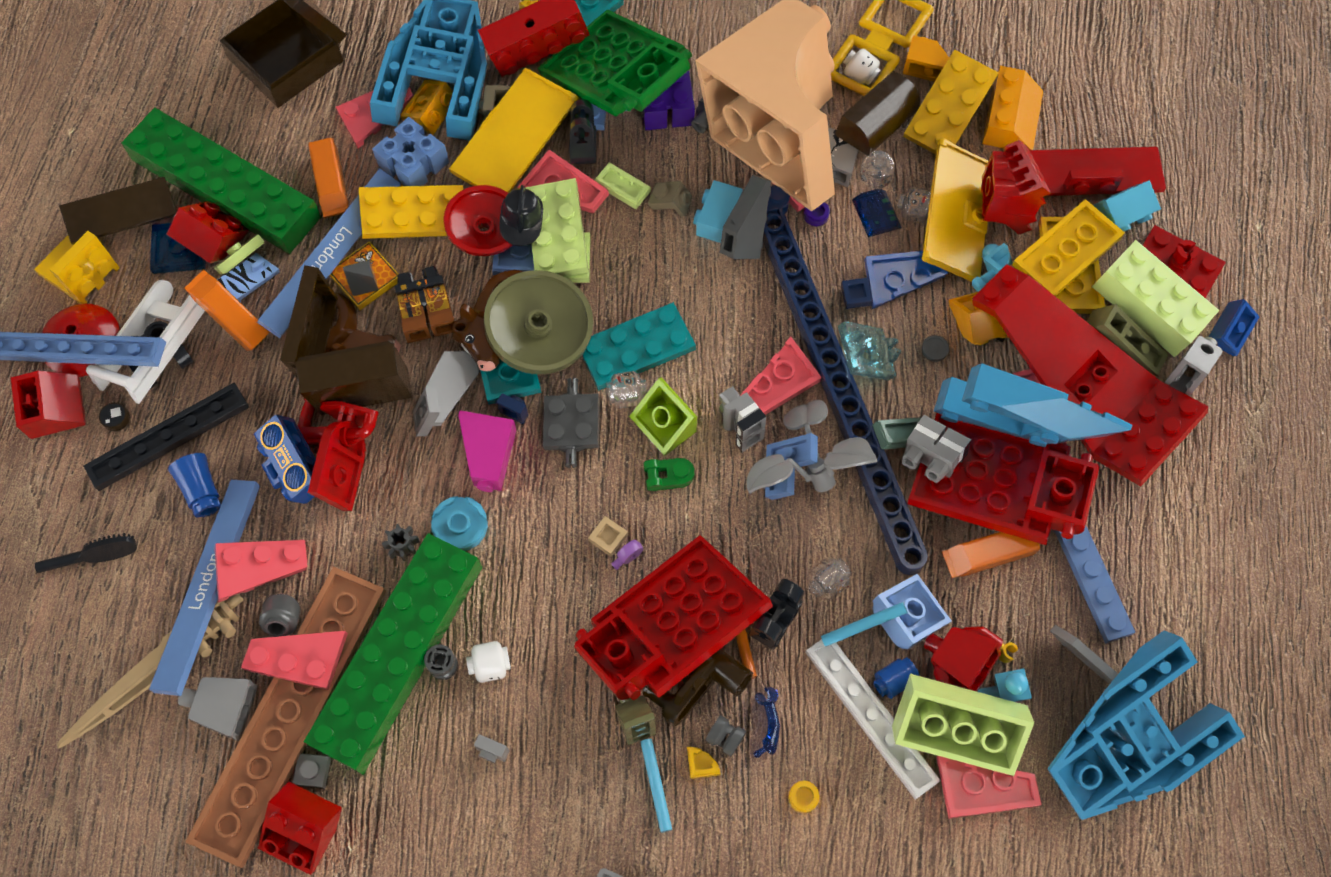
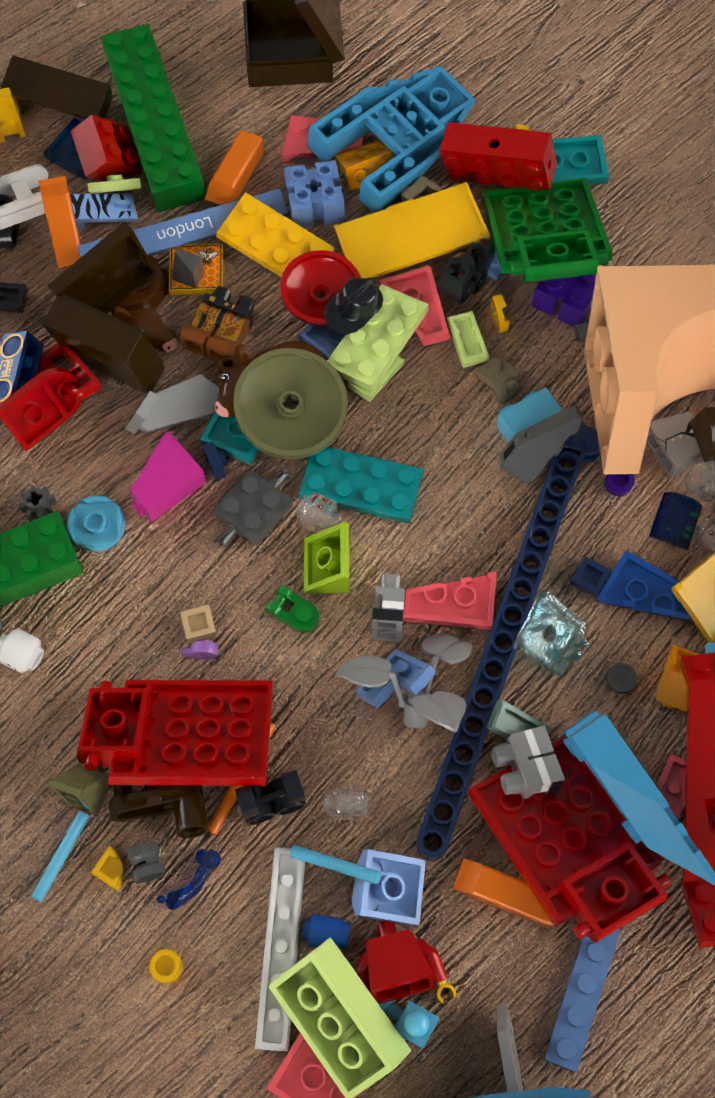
camera: 40 degrees right, 0 degrees up
(628, 152) = (497, 313): none -> yellow tile

